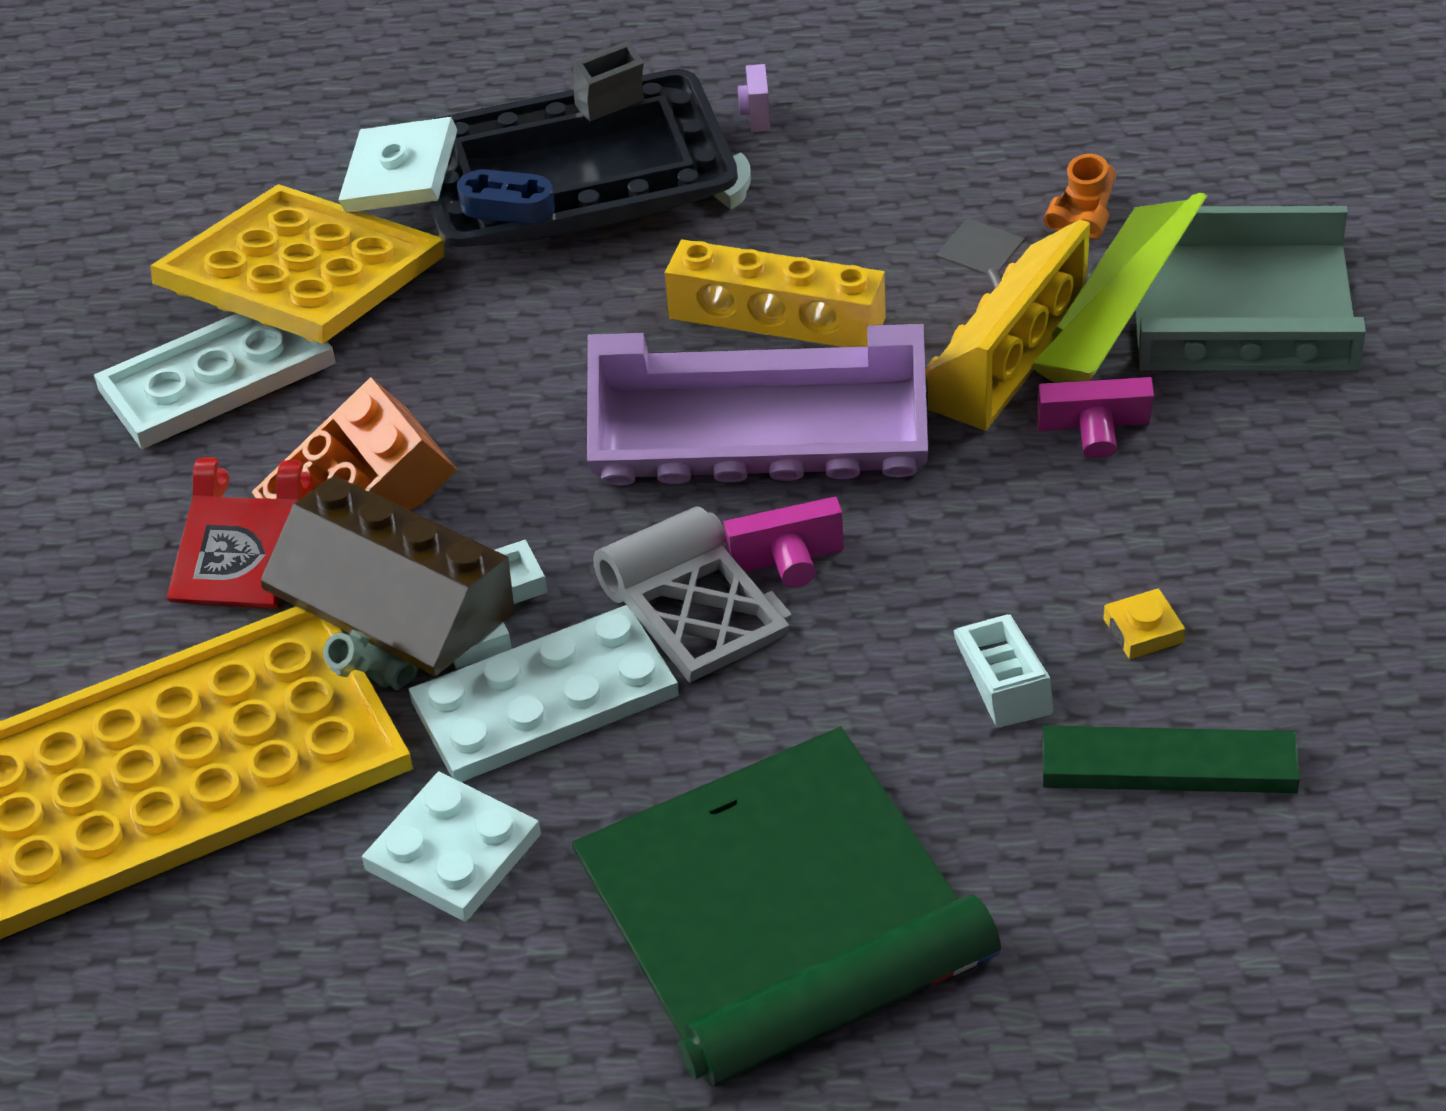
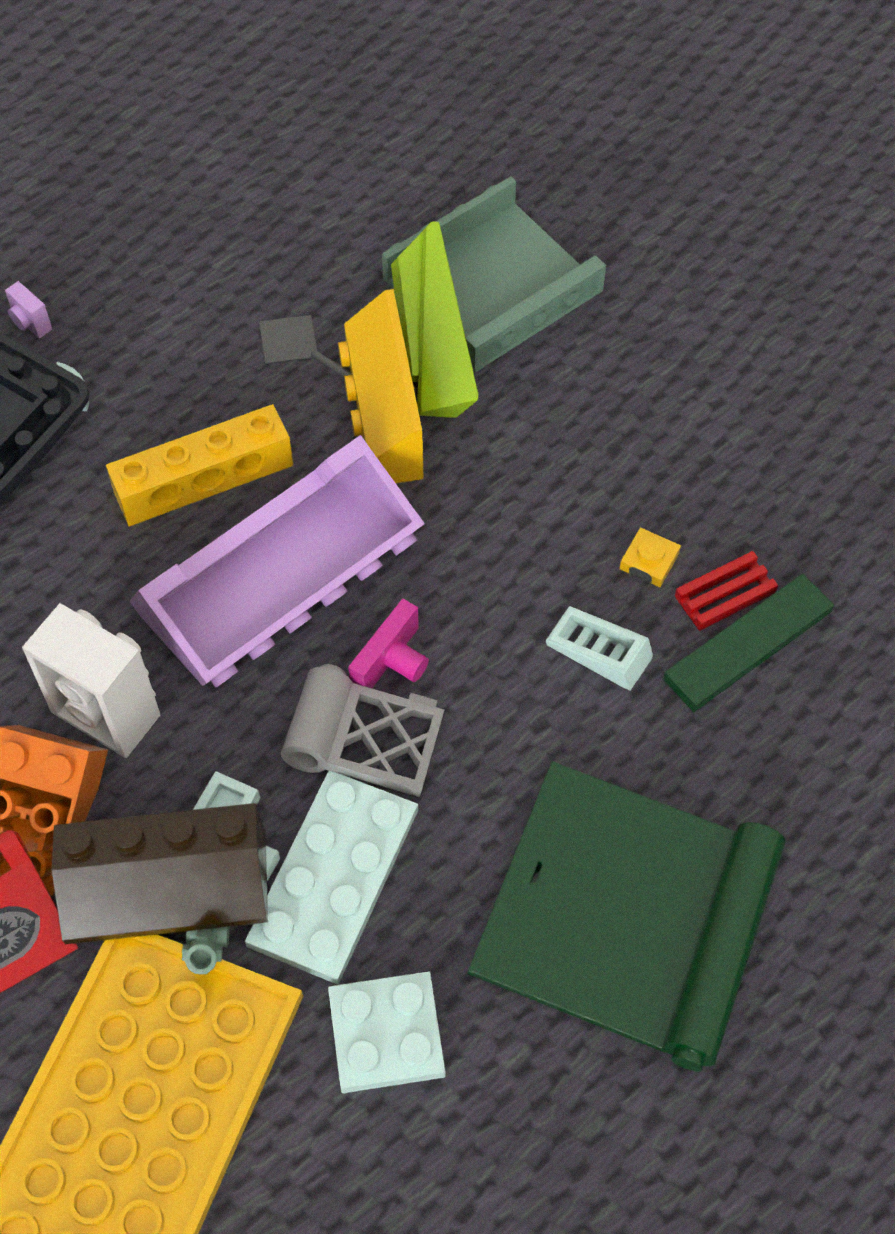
camera: 45 degrees left, 15 degrees up
(485, 388) = (93, 678): none -> white brick
(1085, 196) = (331, 264): orange plate -> none
(1095, 409) = (489, 423): dark pink tile -> none
(1196, 693) = (746, 562): none -> red tile

